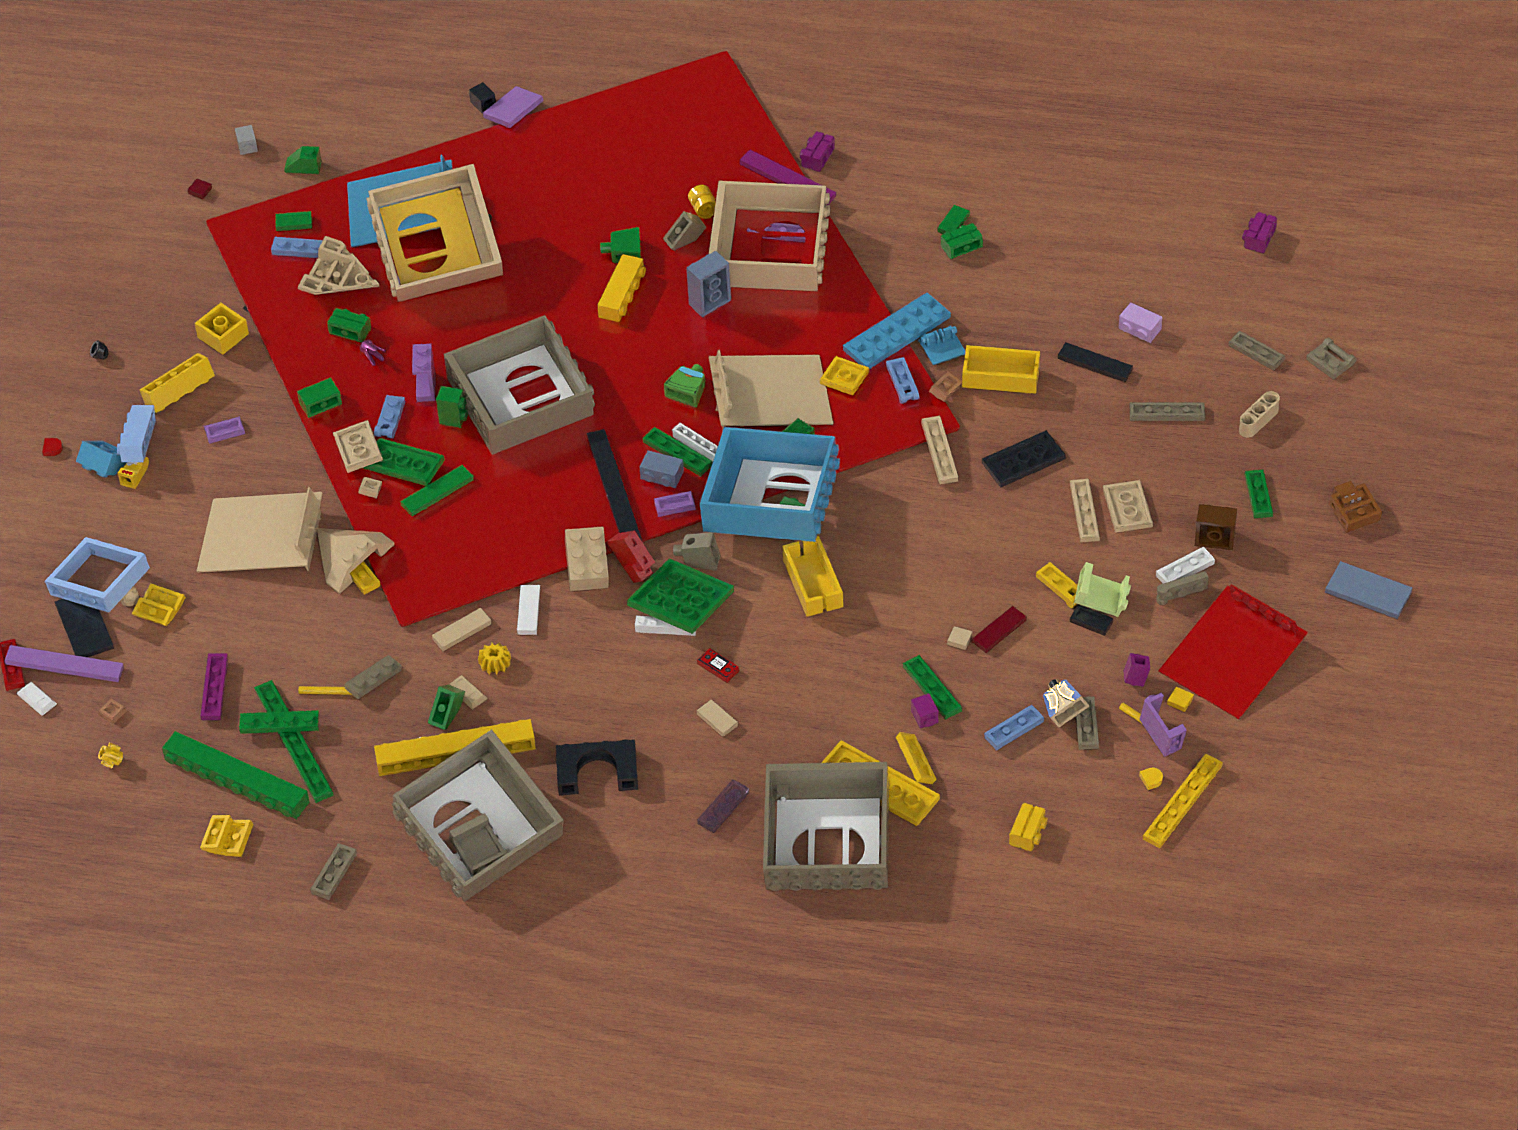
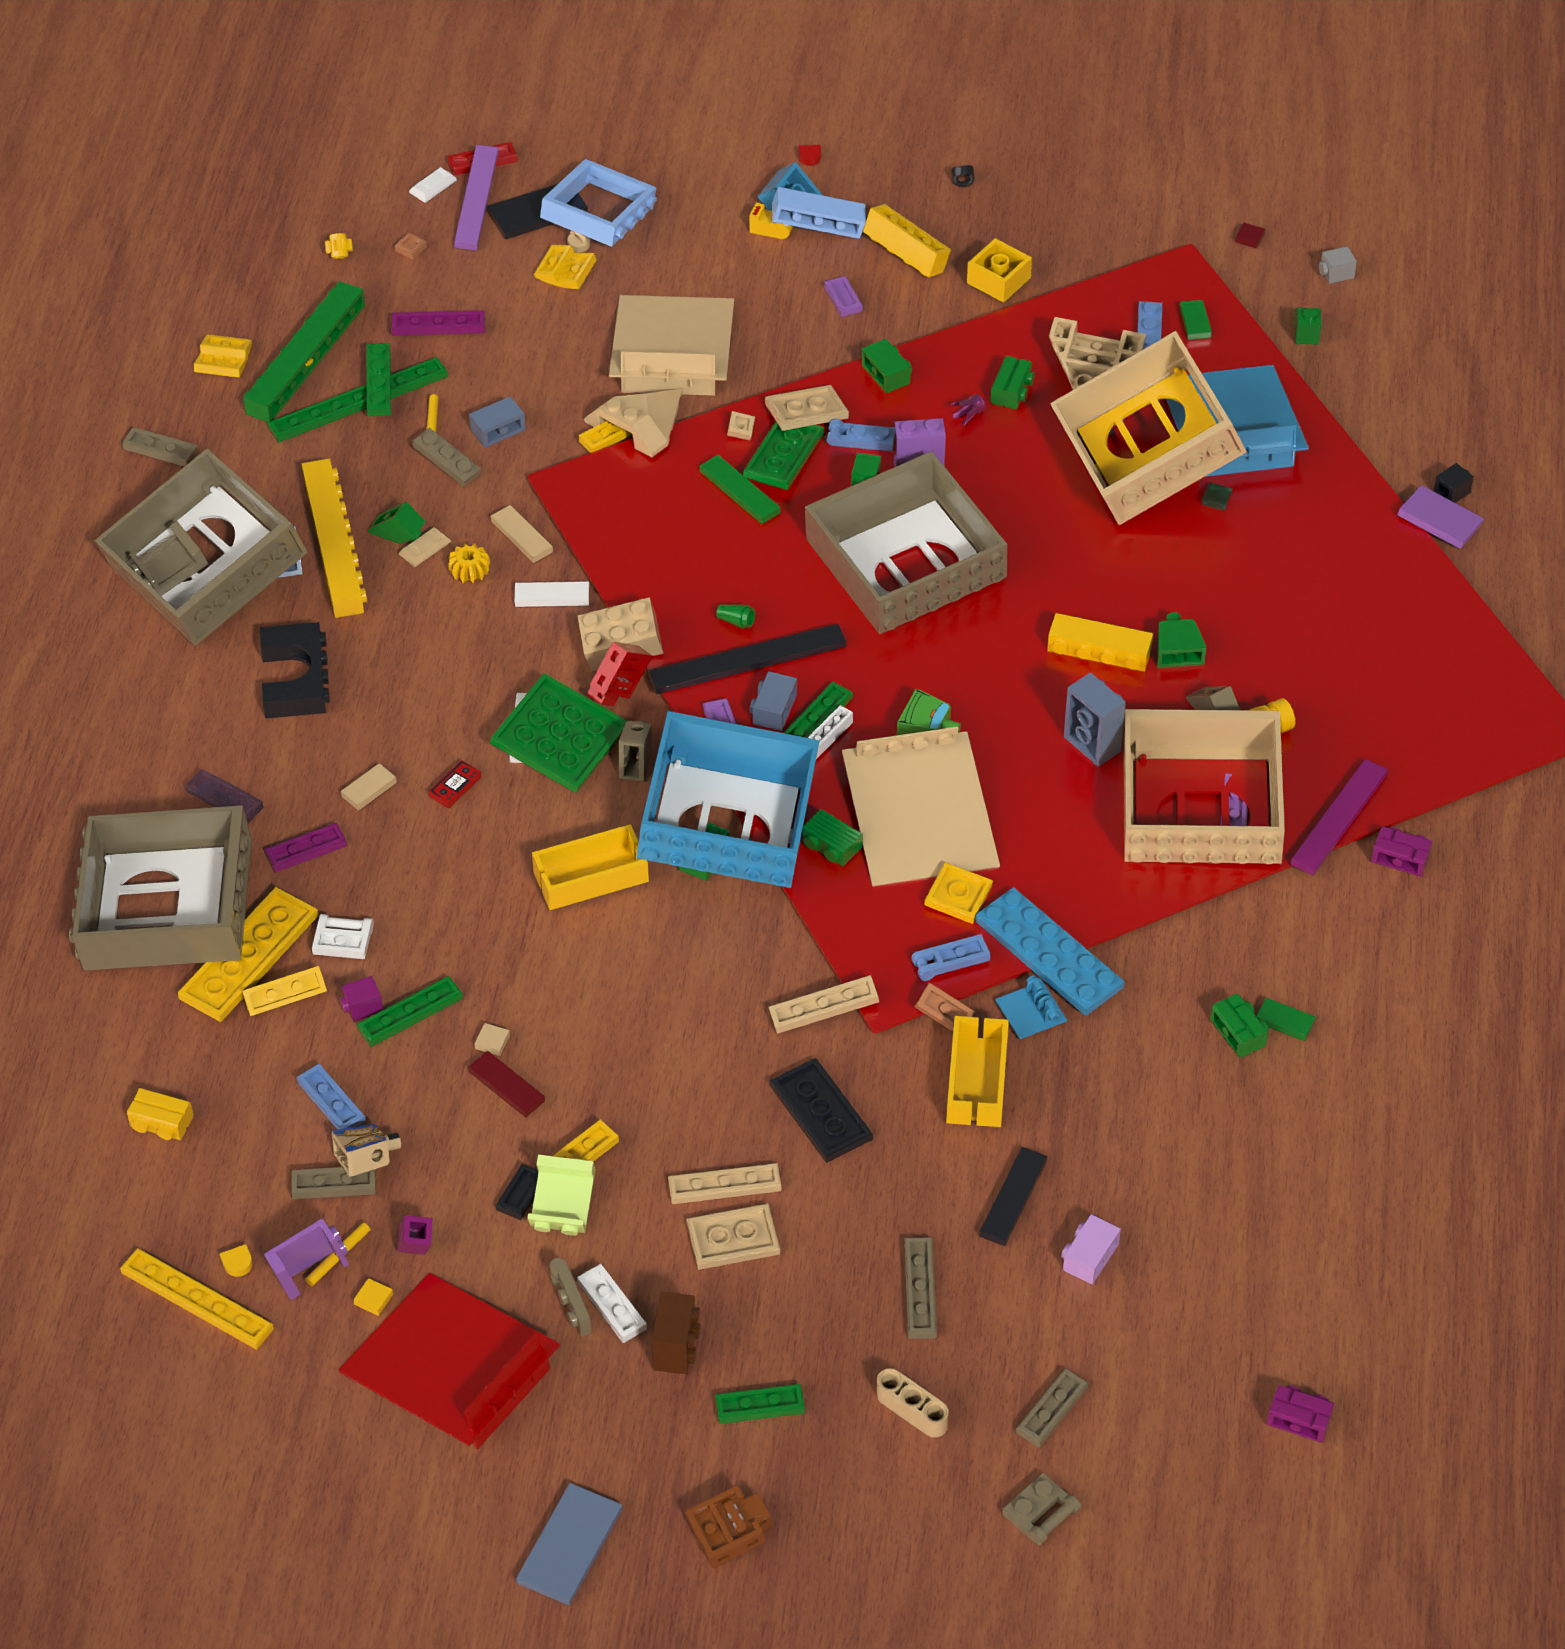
camera: 85 degrees right, 0 degrees up
(338, 644) = (497, 422): none -> sand blue brick
(571, 491) = (738, 615): none -> green cone
(770, 748) = (305, 847): none -> magenta tile
(869, 729) = (342, 942): none -> white plate

